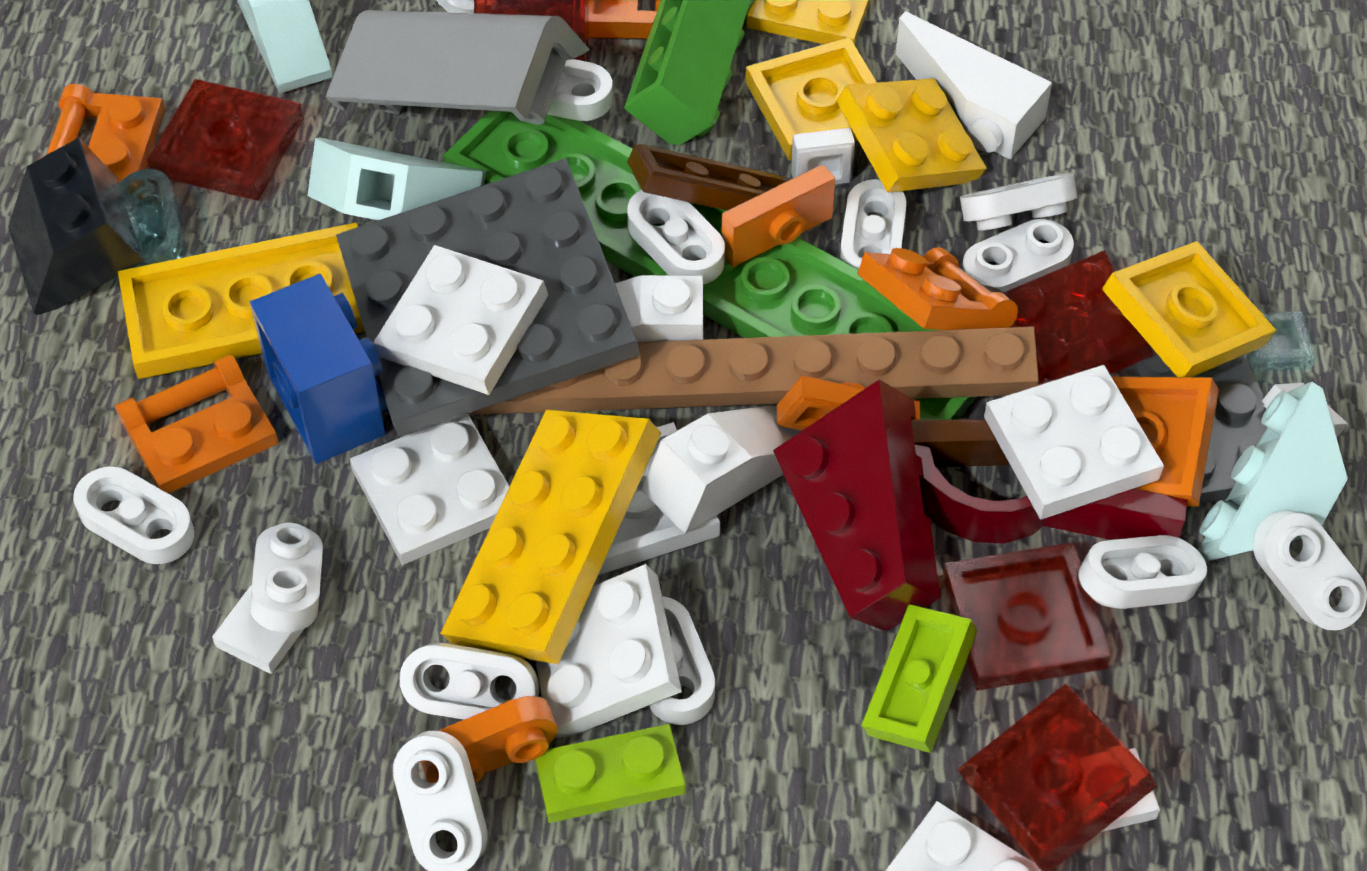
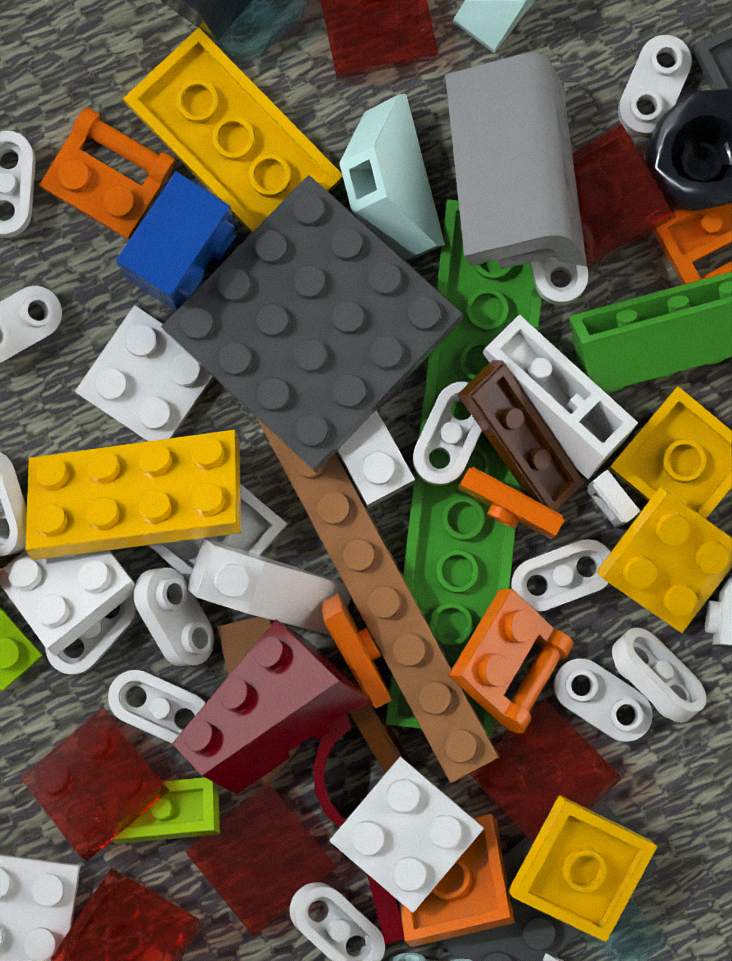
camera: 60 degrees right, 30 degrees up
(461, 319) = (260, 328): white plate -> none
(689, 559) = (175, 623): none -> white plate
(730, 129) = (570, 403): none -> white slope
(777, 528) = (240, 638): none -> medium nougat tile
(795, 635) = (160, 707): none -> white plate
(850, 734) = (94, 784): none -> clear red plate

